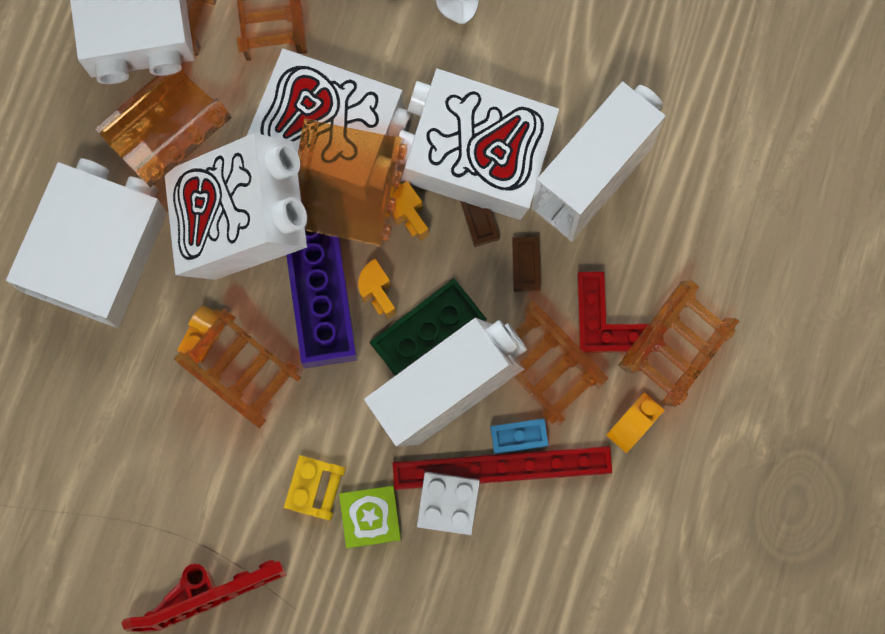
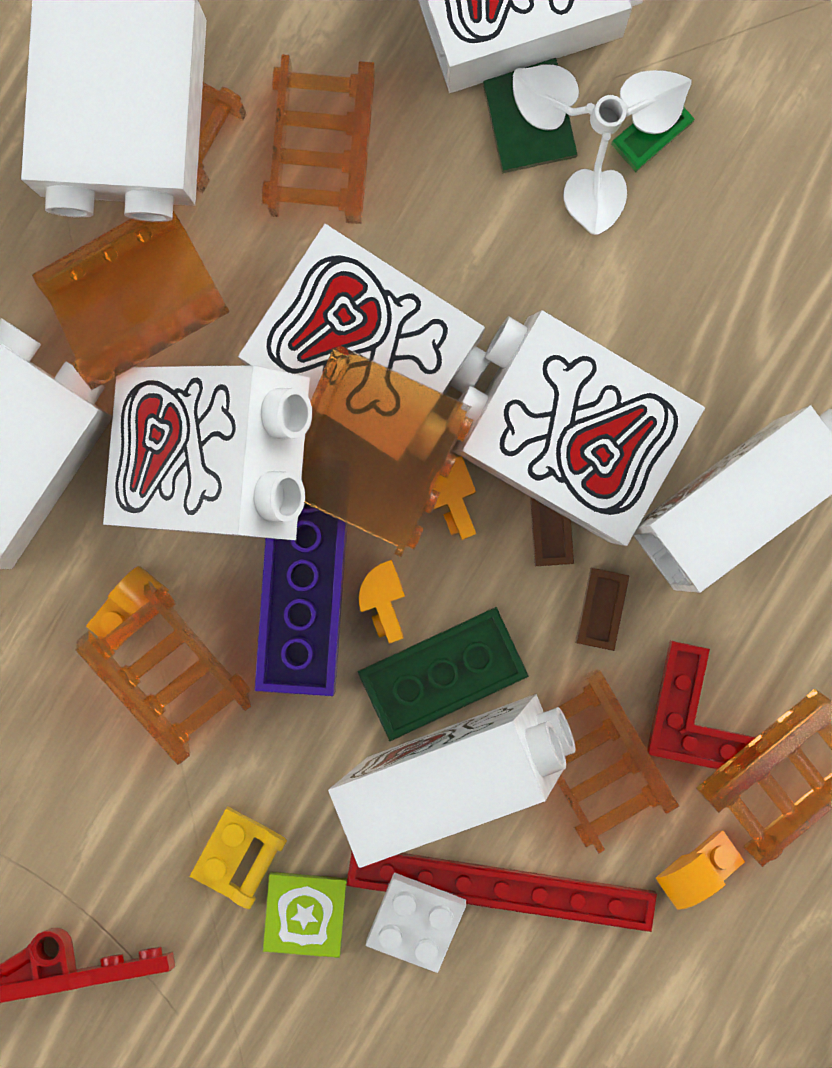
camera: 15 degrees right, 10 degrees up
(519, 436) = (535, 852): dark azure plate -> none

